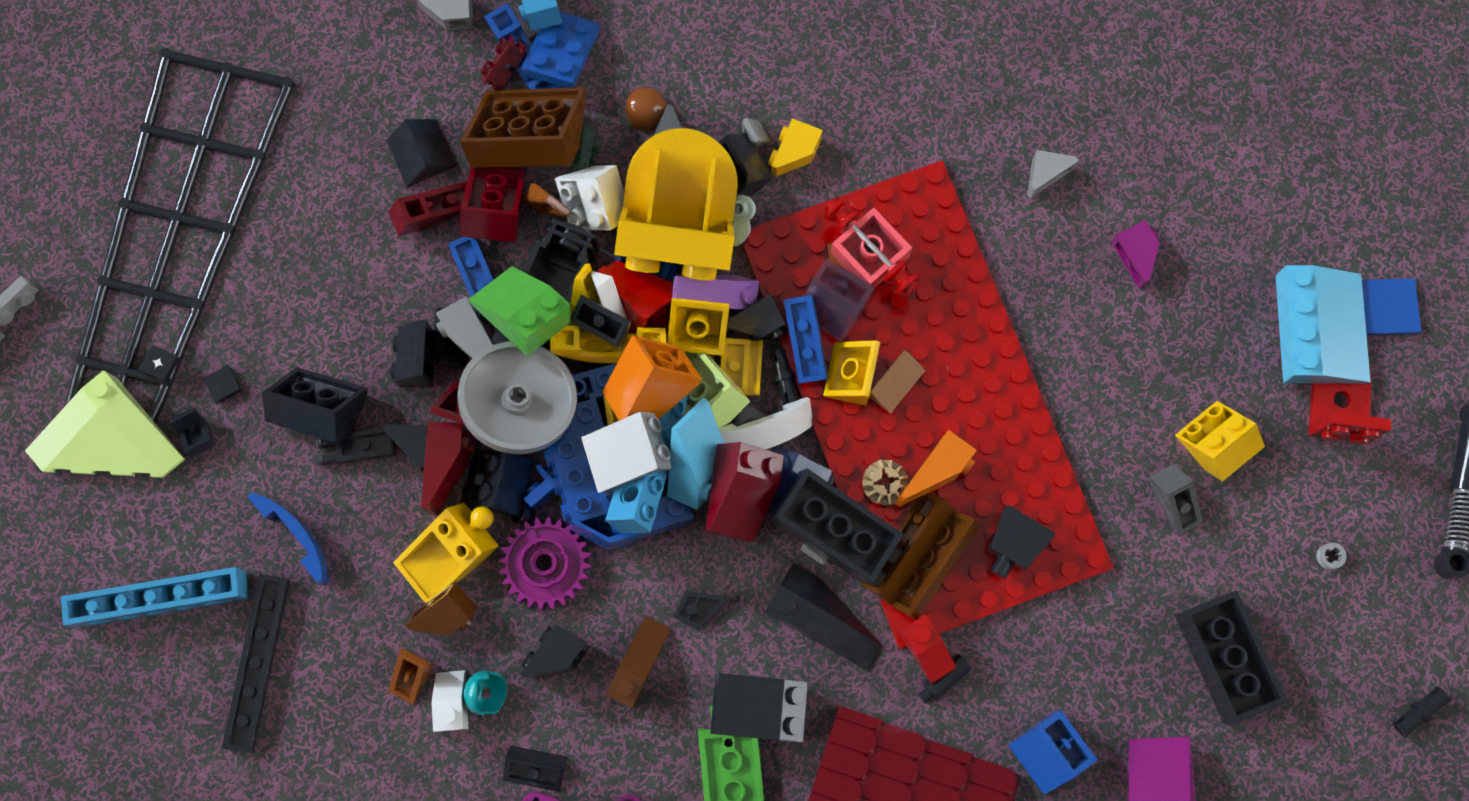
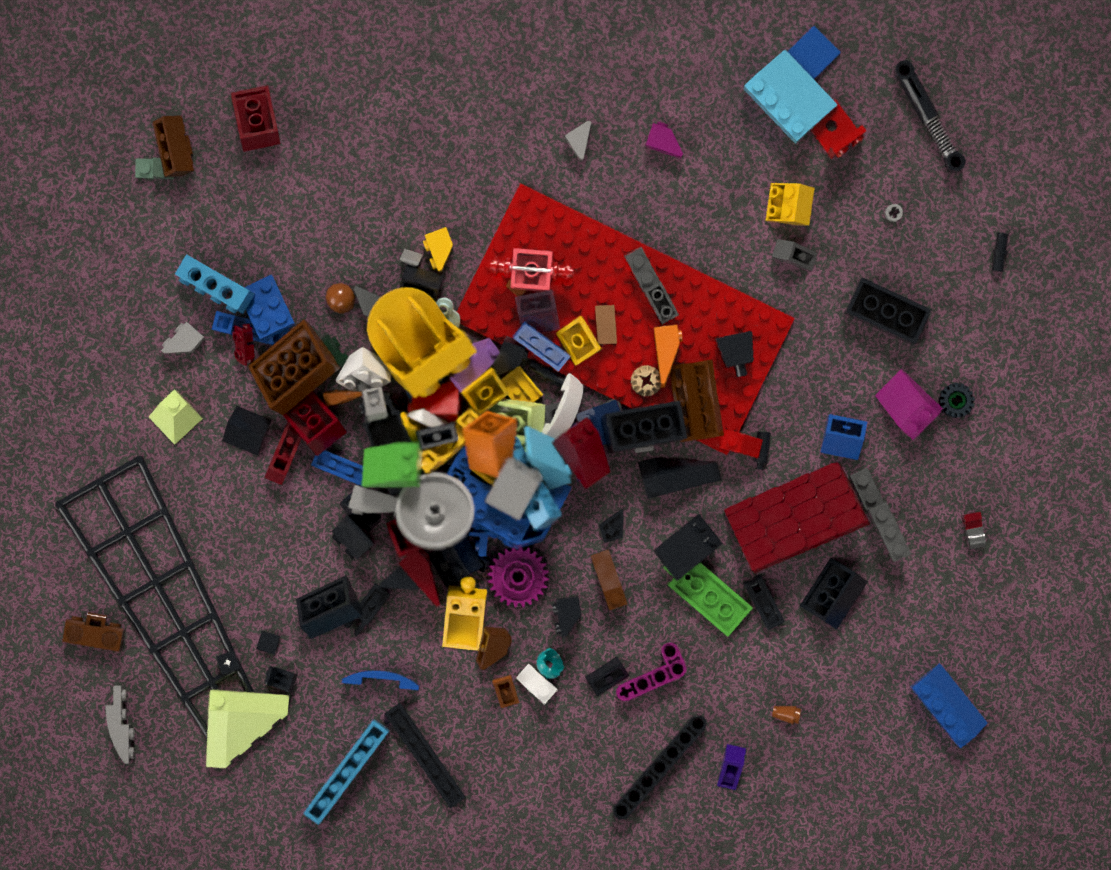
camera: 50 degrees left, 10 degrees up
(54, 202) = (104, 637): none -> reddish brown piece
(365, 72) = (175, 417): none -> yellowish green slope
(568, 230) = (375, 403): none -> light grey slope
(986, 384) = (651, 285): none -> dark grey slope

